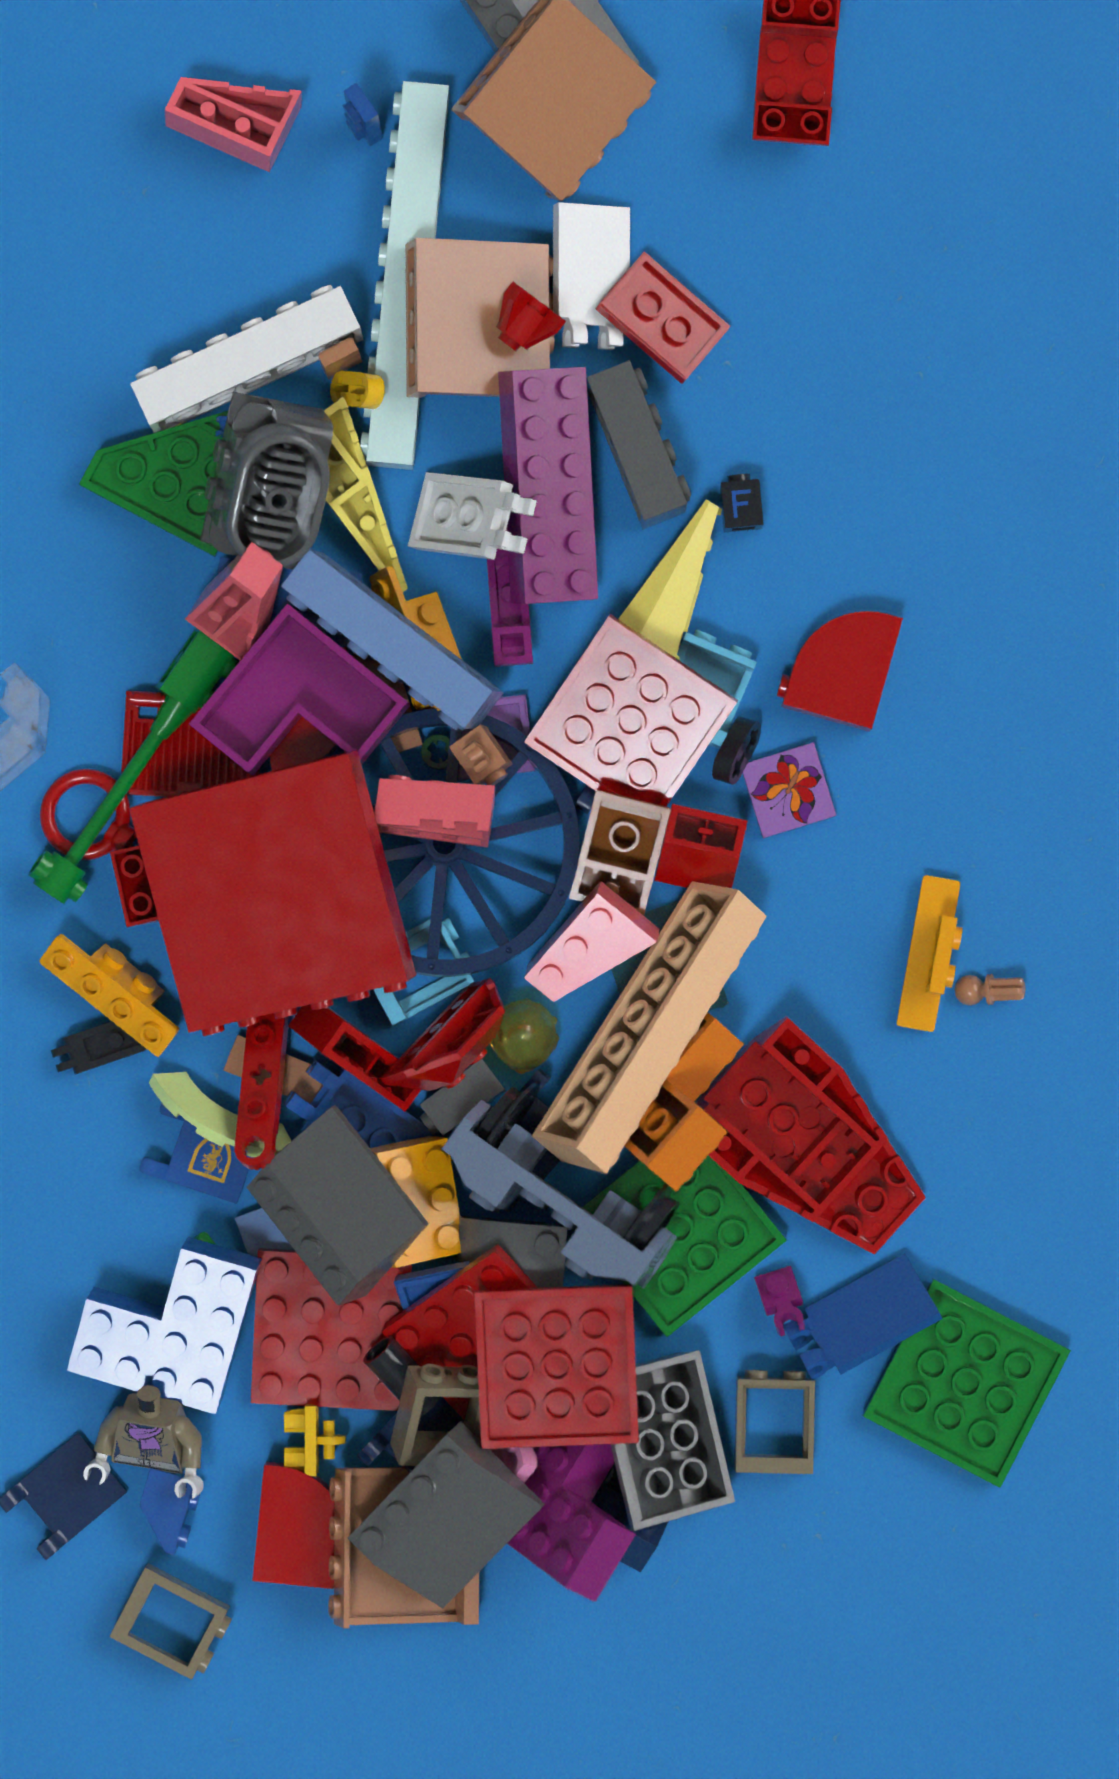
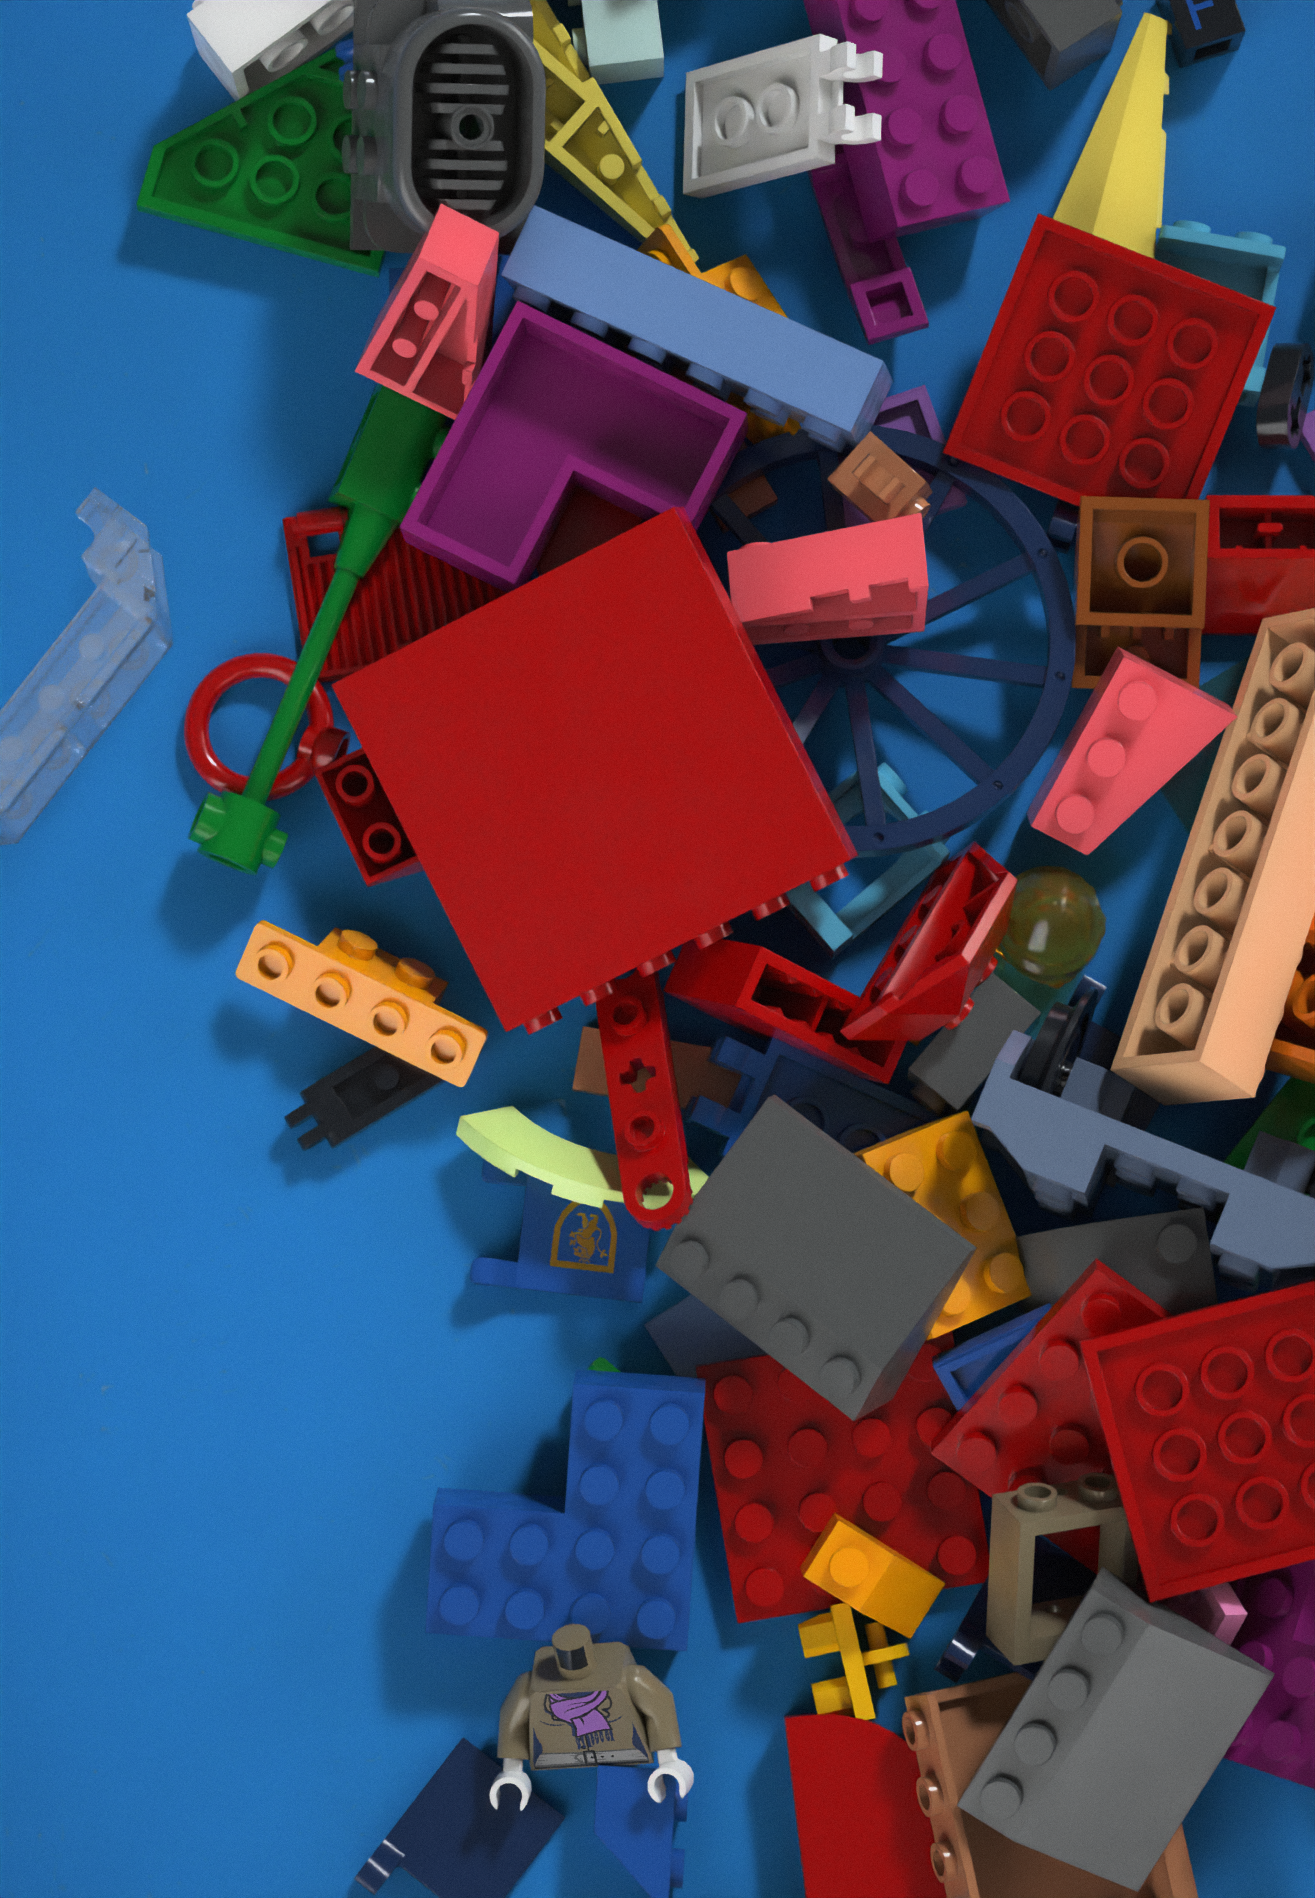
camera: 10 degrees left, 5 degrees down
(331, 1394) = (871, 1576): none -> light orange slope
(390, 1366) = (962, 1508): black pin -> none
(427, 755) = (787, 512): dark green bush -> none

